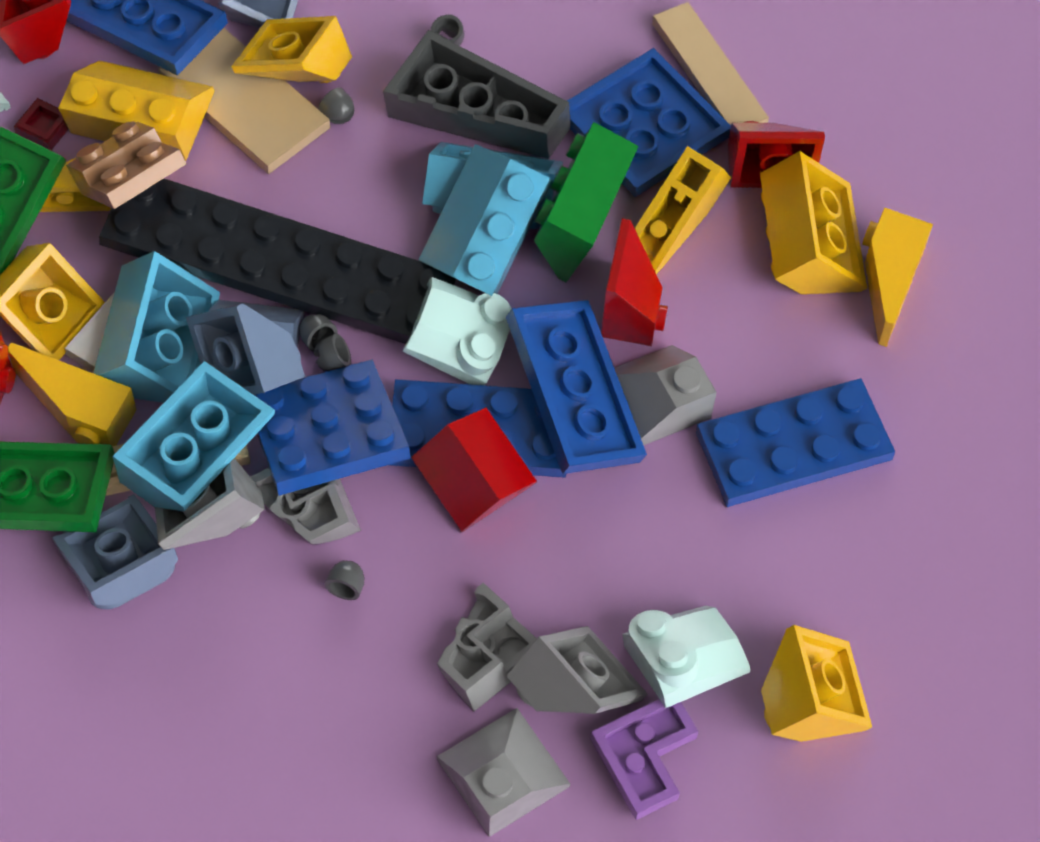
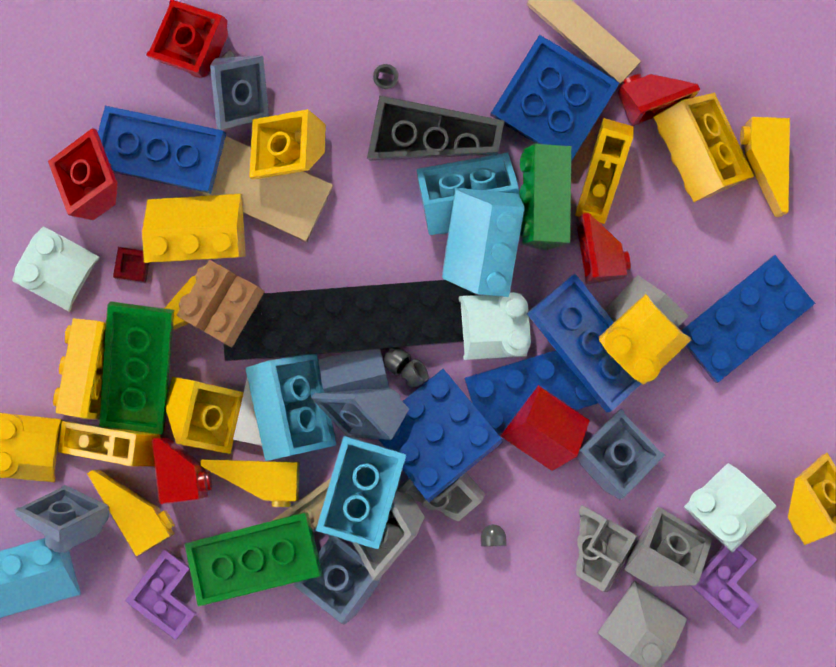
camera: 15 degrees left, 25 degrees up
(337, 106) = (334, 172): dark grey hinge -> none
(556, 534) = (618, 455): none -> sand blue slope
(645, 395) = (643, 340): none -> yellow slope

